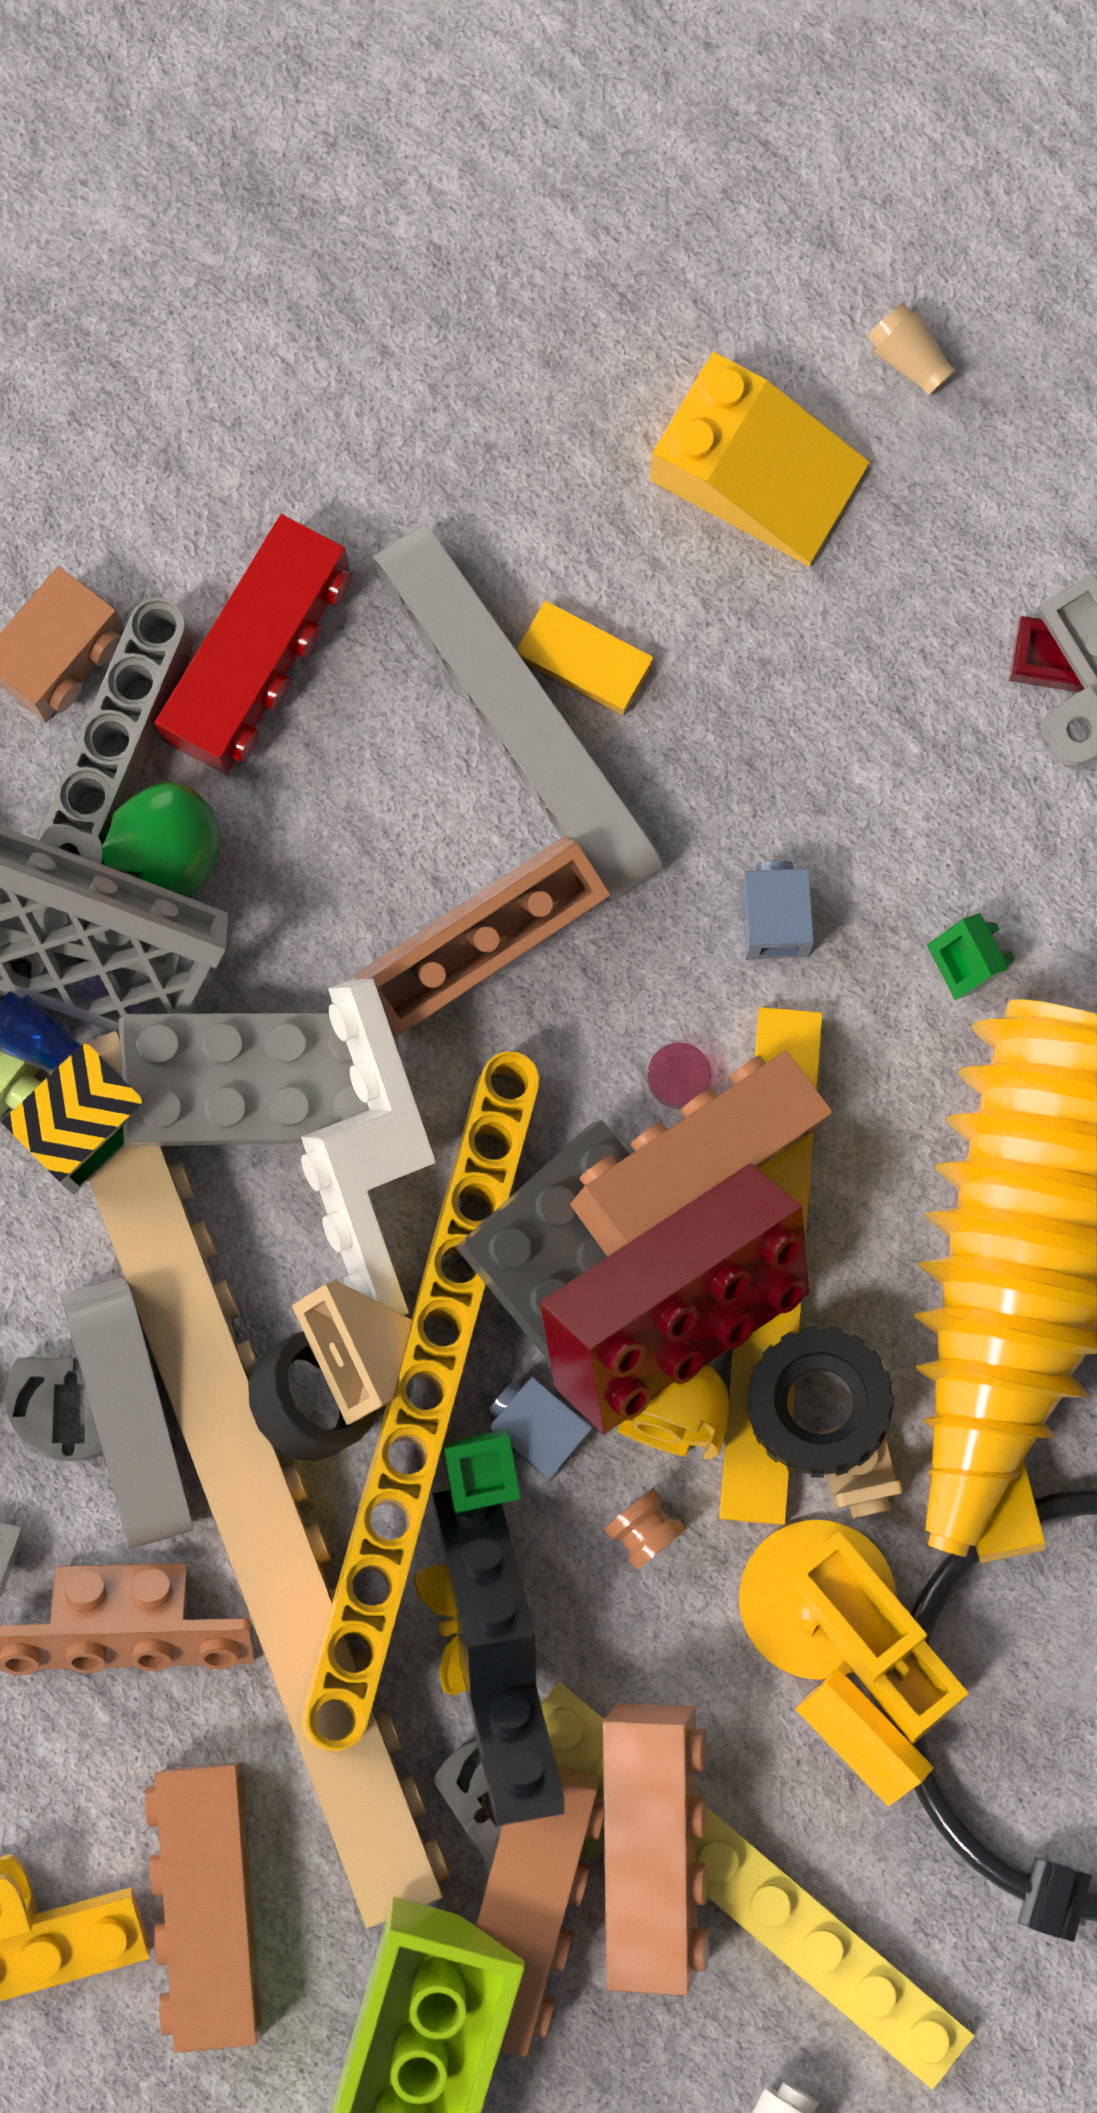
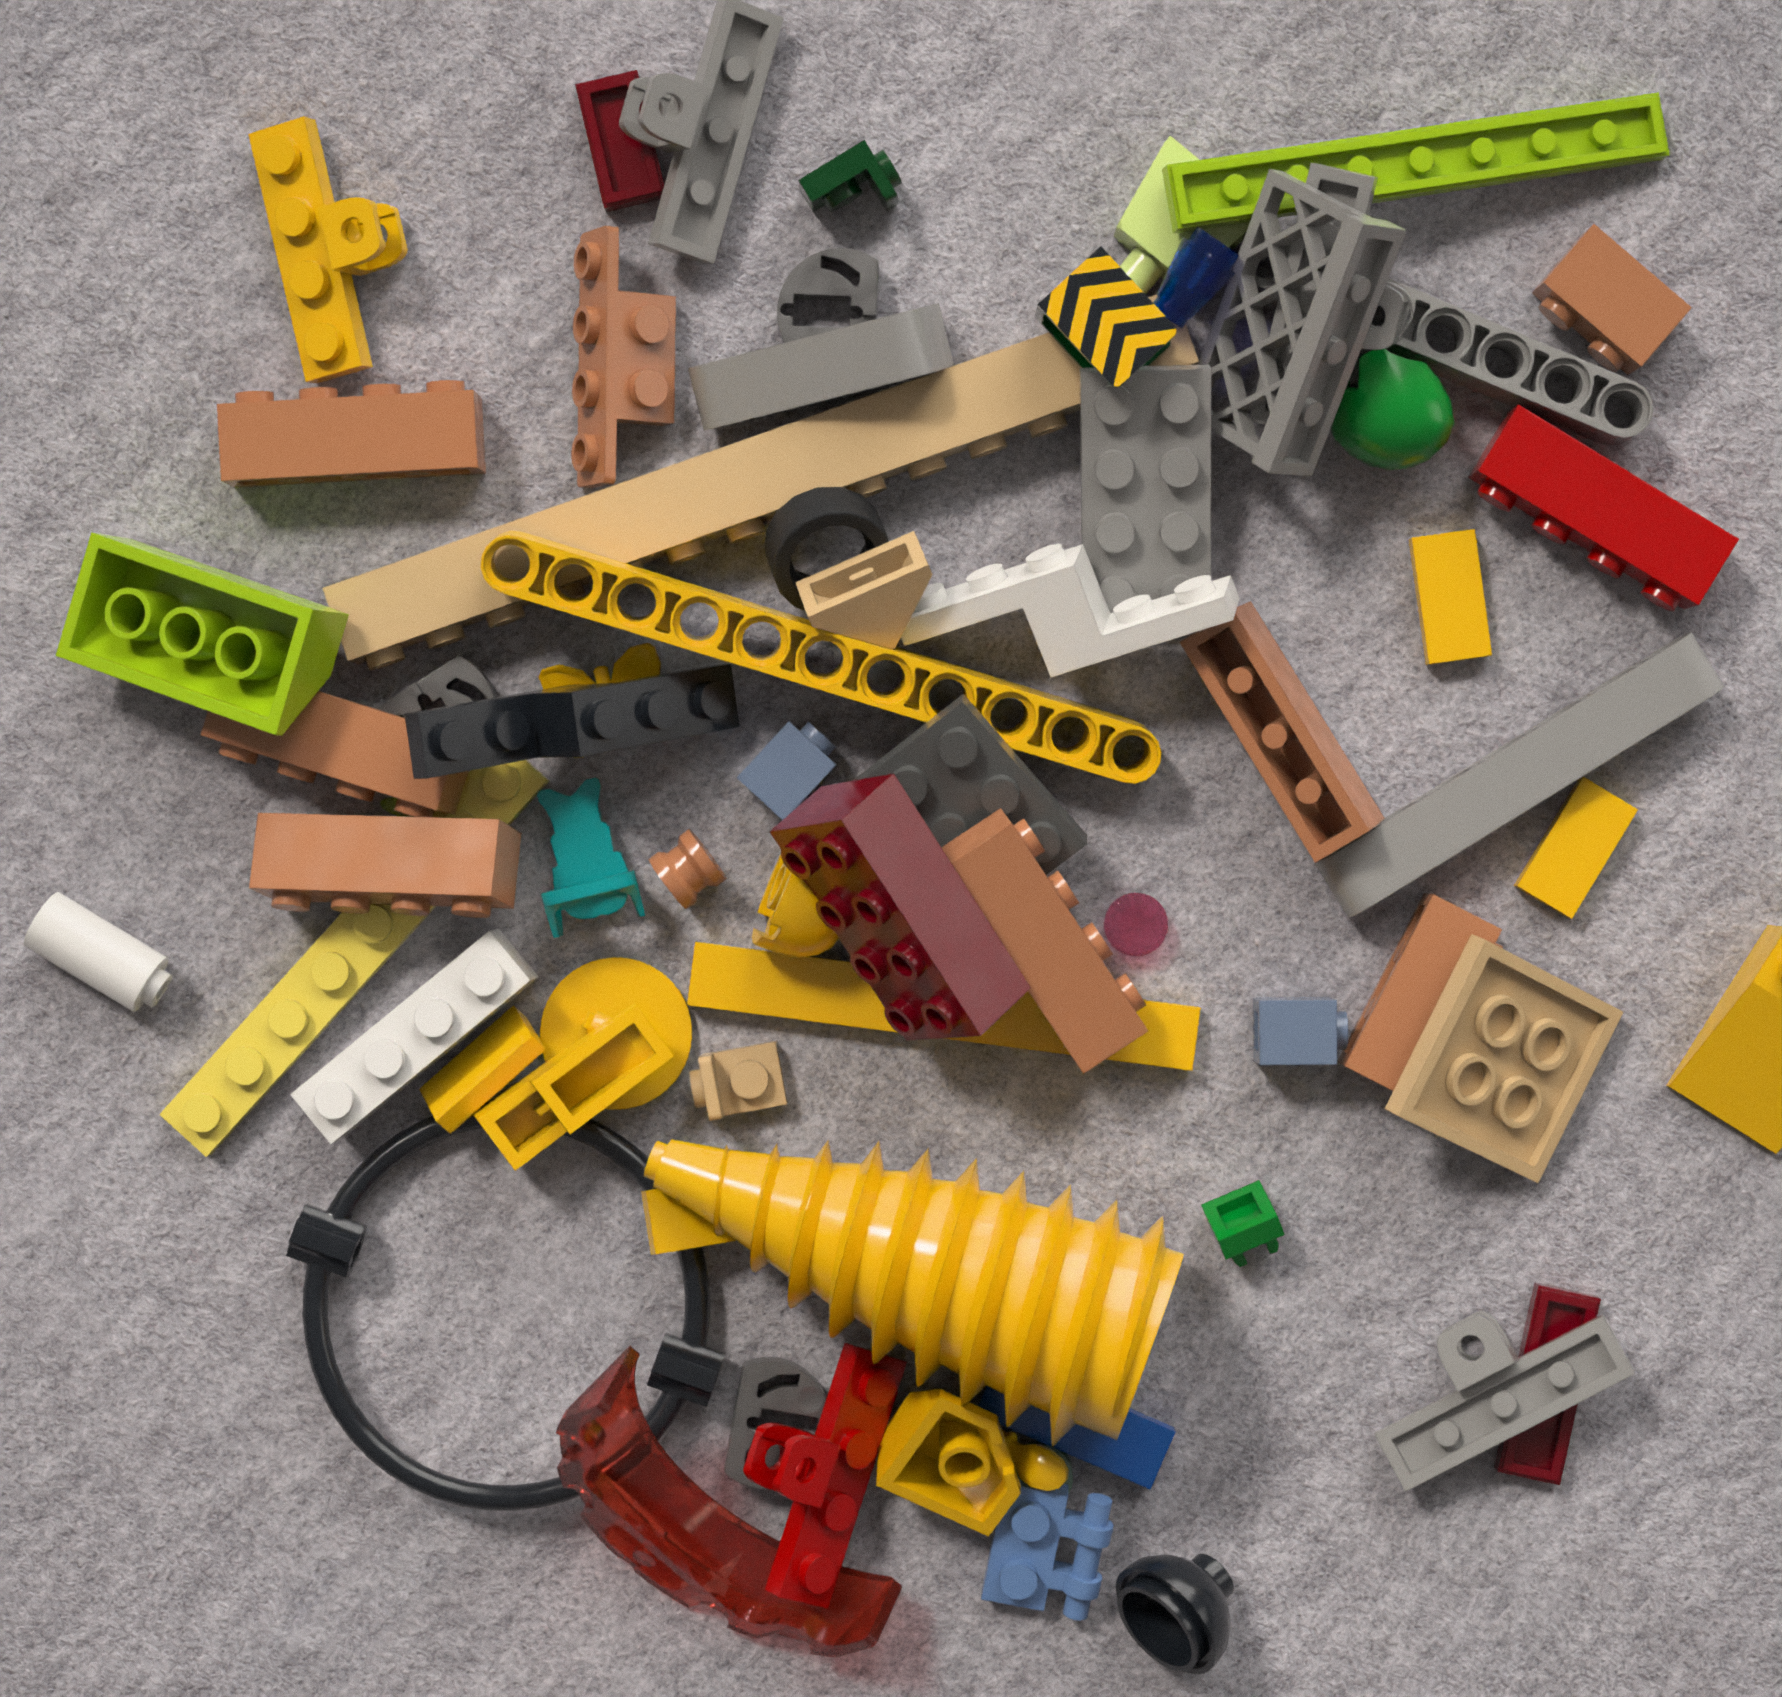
camera: 90 degrees right, 10 degrees up
(343, 785) = (1450, 597): none -> yellow tile
(481, 1470) = (745, 711): green tile -> none
(652, 1633) = (589, 872): none -> teal hair
(736, 793) = (1411, 988): none -> nougat brick
(793, 711) = (1504, 1059): none -> tan plate
(831, 1352) = (849, 1053): black tyre -> none
(834, 1812) = (414, 1035): none -> white brick

